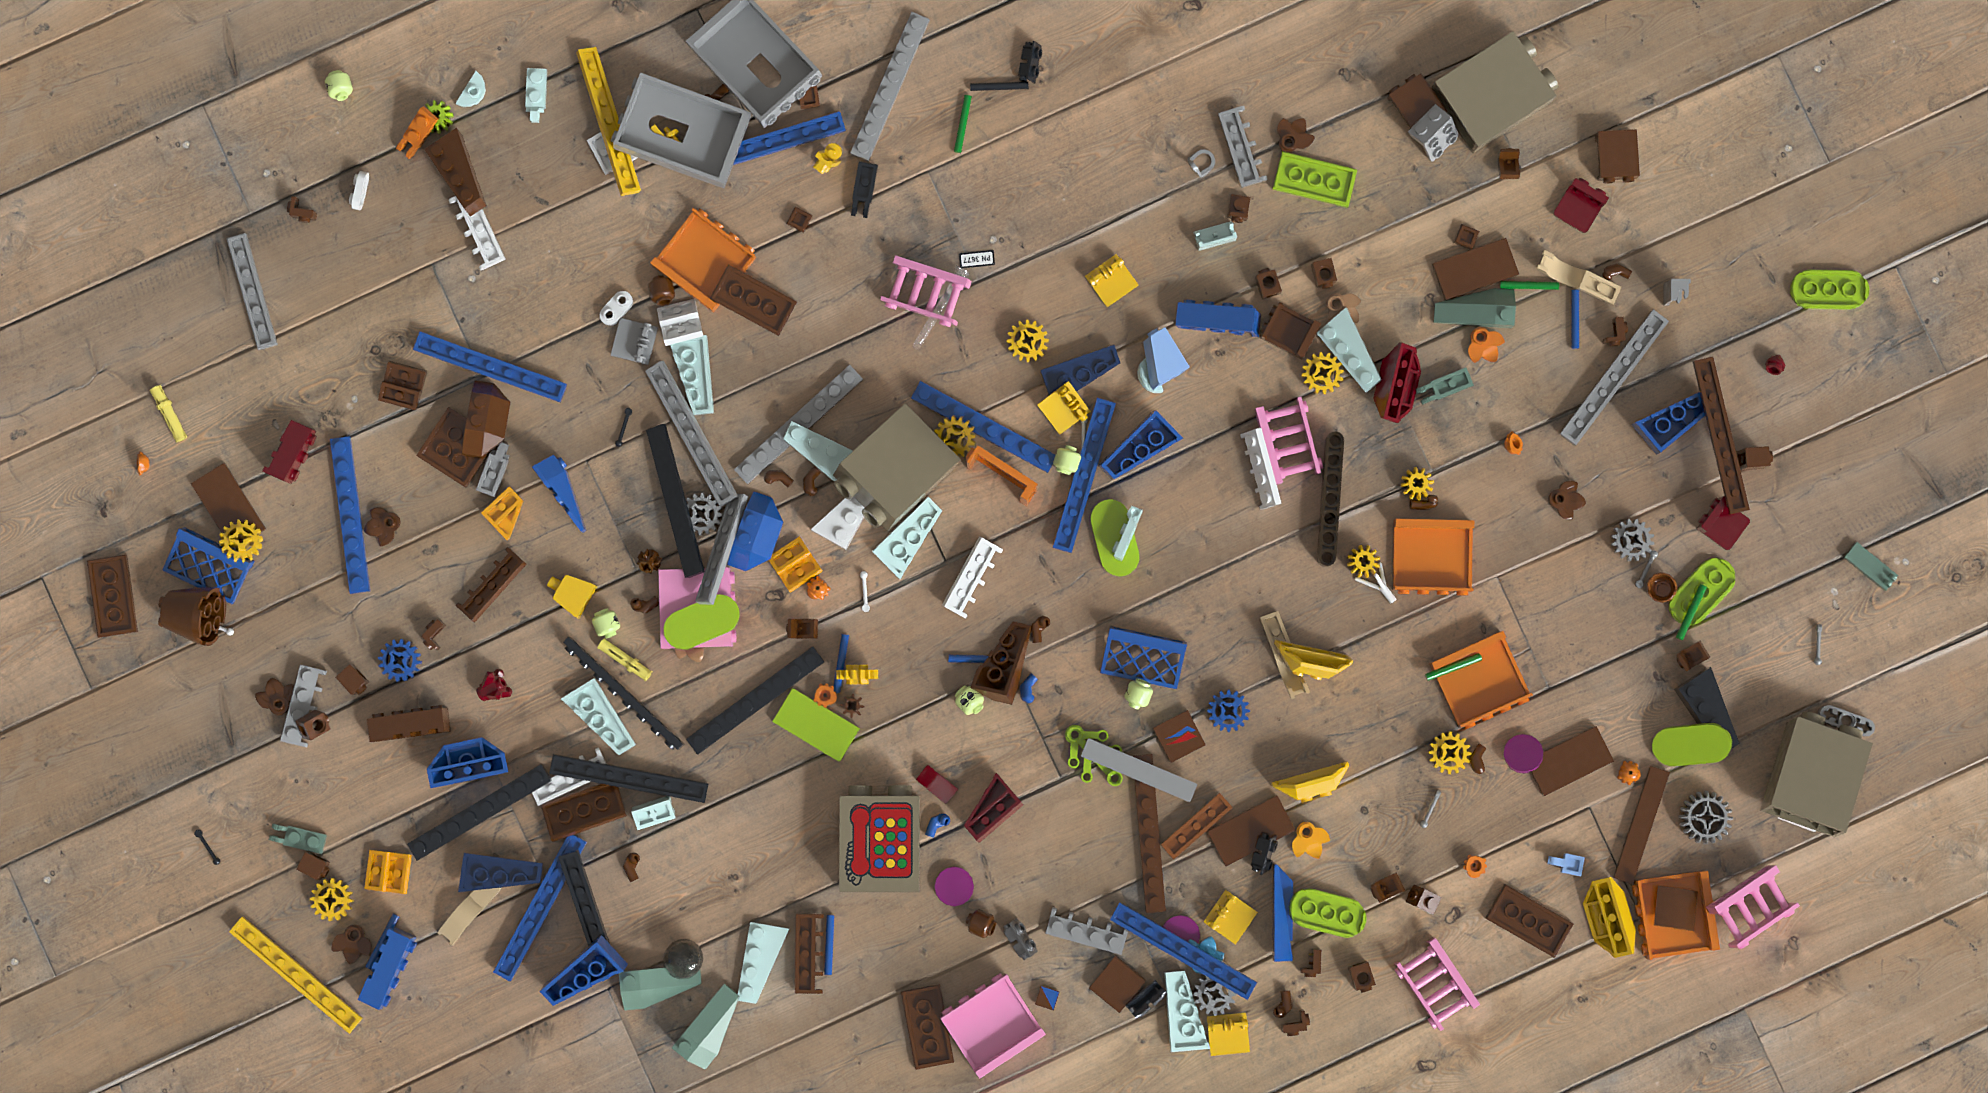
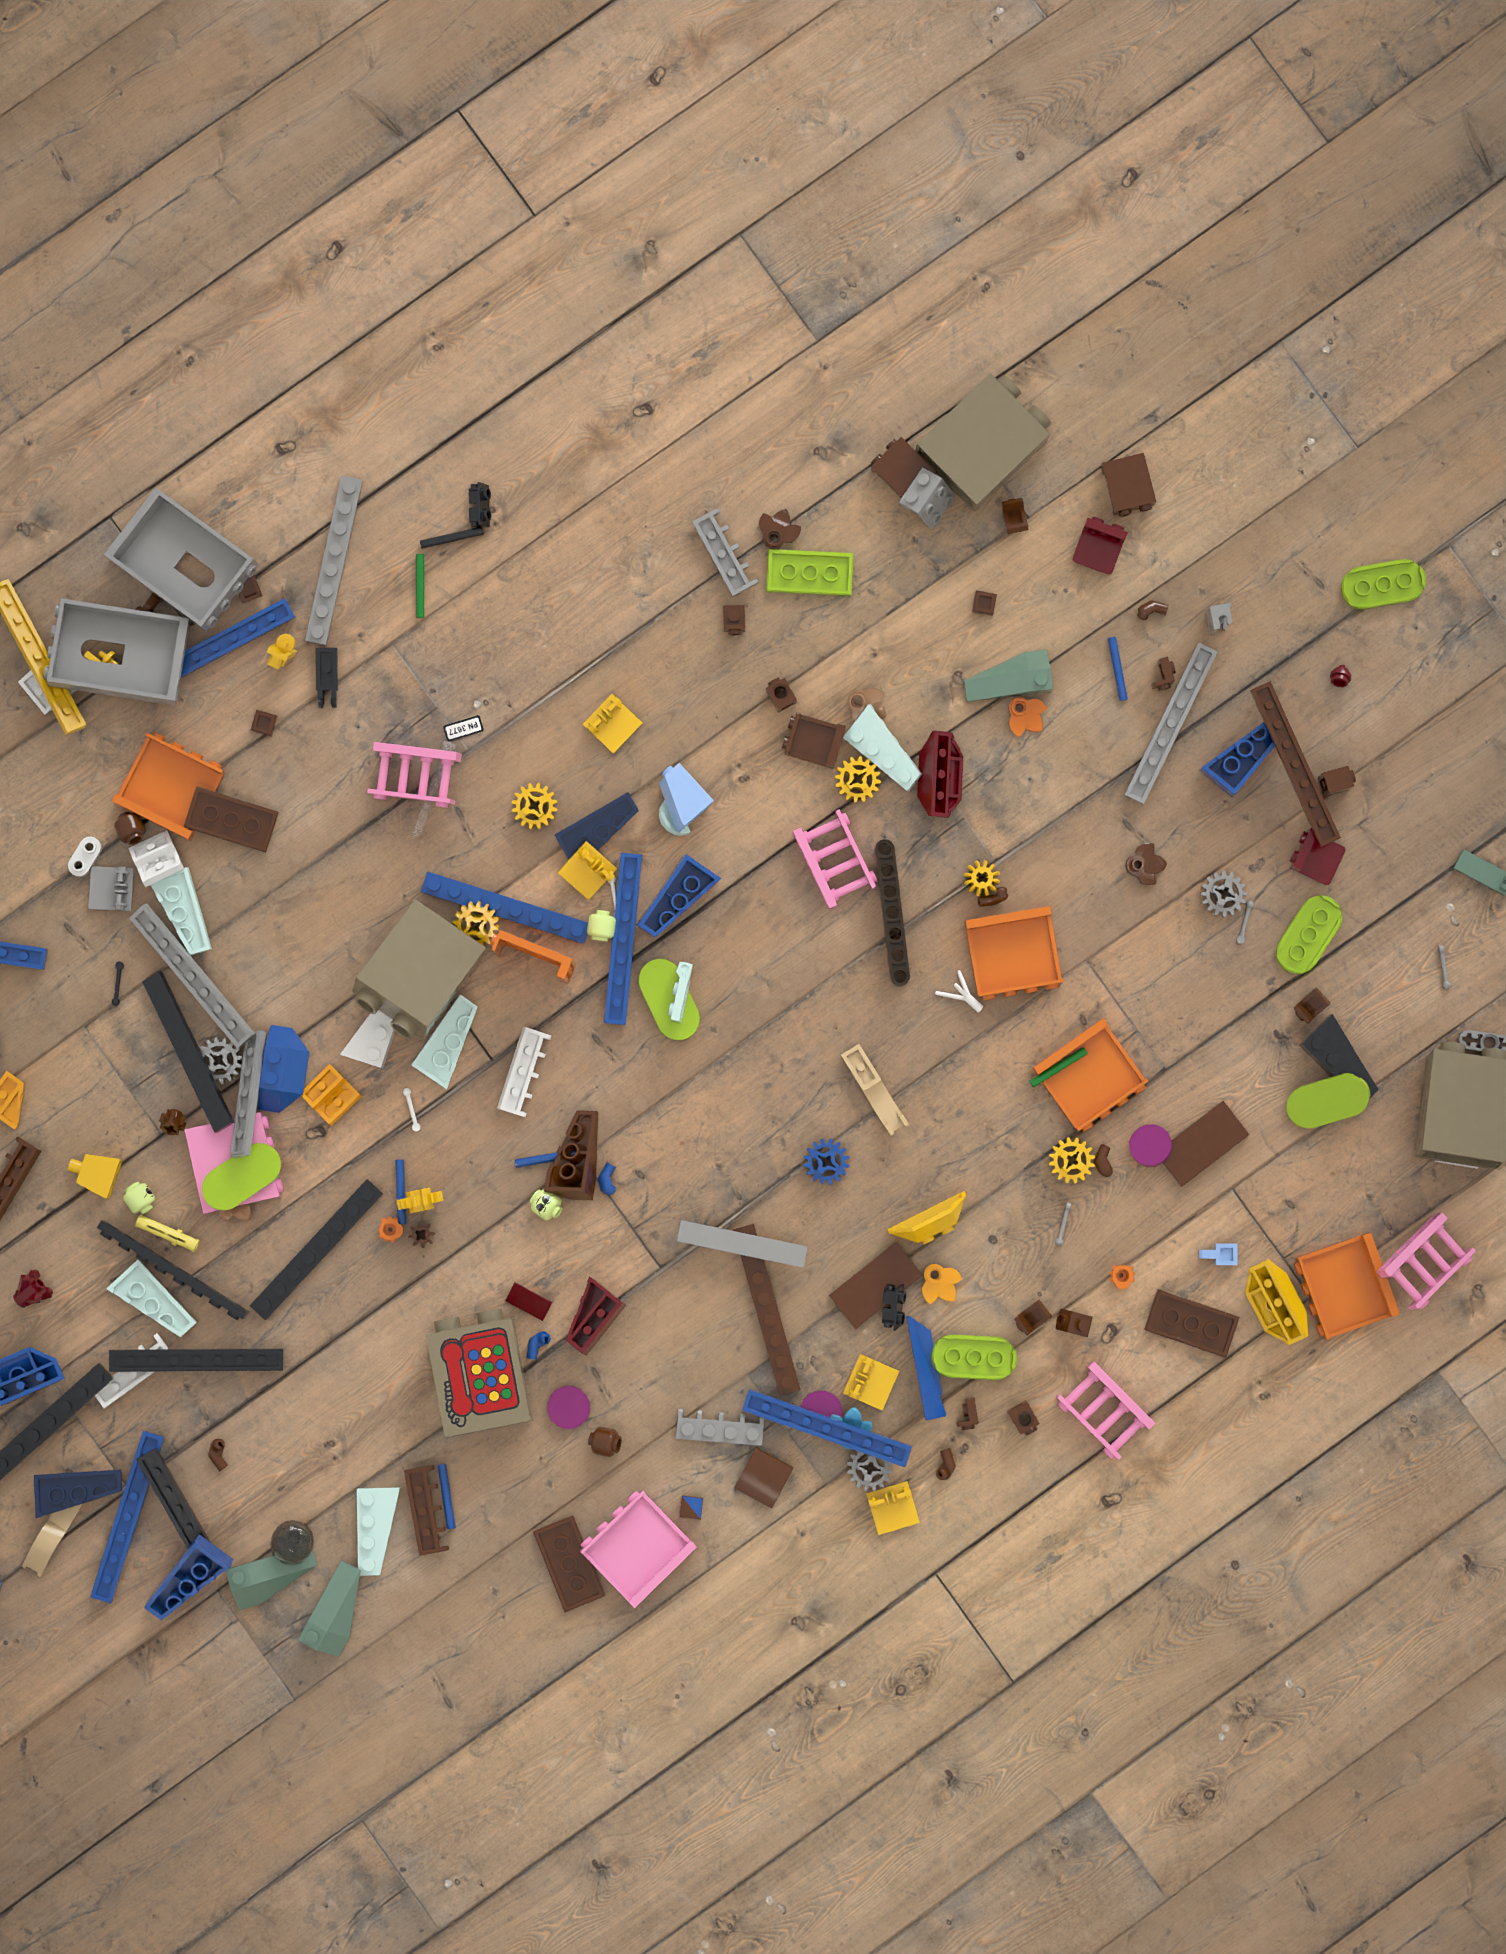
camera: 15 degrees left, 0 degrees up
(556, 478) = (56, 1053): blue wedge -> none
(583, 811) = (153, 1404): reddish brown tile -> none
(644, 606) = (176, 1172): reddish brown arm -> none
(653, 812) = (229, 1391): light aqua hinge -> none
(778, 475) = (294, 1002): reddish brown arm -> none
(802, 628) = (351, 1162): reddish brown bracket -> none
(806, 417) = (305, 943): light grey plate -> none
(808, 481) = (328, 1002): reddish brown arm -> none
(816, 448) = (328, 965): light aqua wing -> none
(816, 725) = (386, 1263): lime tile -> none
(823, 588) = (357, 1122): orange animal -> none
(1016, 931) = (644, 1442): flat silver hinge -> none
(1037, 627) = (605, 1111): reddish brown arm -> none
(1087, 763) = (674, 1225): lime plant -> none
(1138, 693) = (726, 1161): yellowish green head -> none
(1145, 640) = (719, 1103): blue fence -> none
(1151, 994) = (802, 1481): black hinge -> none
(1179, 736) = (779, 1199): reddish brown tile -> none
(1184, 1024) = (843, 1505): light aqua wing -> none
(1190, 161) = (690, 587): light grey piece -> none
(1196, 826) = (816, 1291): dark orange plate -> none
(1215, 236) = (714, 654): light aqua hinge -> none
(1218, 317) = (734, 741): blue wedge -> none
(1261, 468) = (812, 894): white hinge -> none
(1293, 1029) = (960, 1488): reddish brown bracket -> none
(1312, 661) = (905, 1090): yellow wedge -> none
(1326, 264) = (839, 662): reddish brown brick -> none
(1369, 558) = (934, 977): yellow gear -> none
(1447, 385) = (994, 766): sand green hinge -> none
(1475, 269) = (1000, 635): reddish brown tile -> none
(1513, 443) = (1076, 815): orange animal -> none
(1529, 285) = (1061, 641): green bar -> none
(1578, 278) = (1112, 624): tan piece -> none
(1624, 772) = (1262, 1146): orange animal -> none
(1641, 825) = (1291, 1197): reddish brown tile -> none
(1661, 587) = (1264, 938): dark orange hair -> none
(1675, 908) = (1344, 1279): reddish brown slope -> none
(1691, 612) = (1301, 959): green bar -> none
(1705, 835) = (1357, 1166): light grey gear -> none

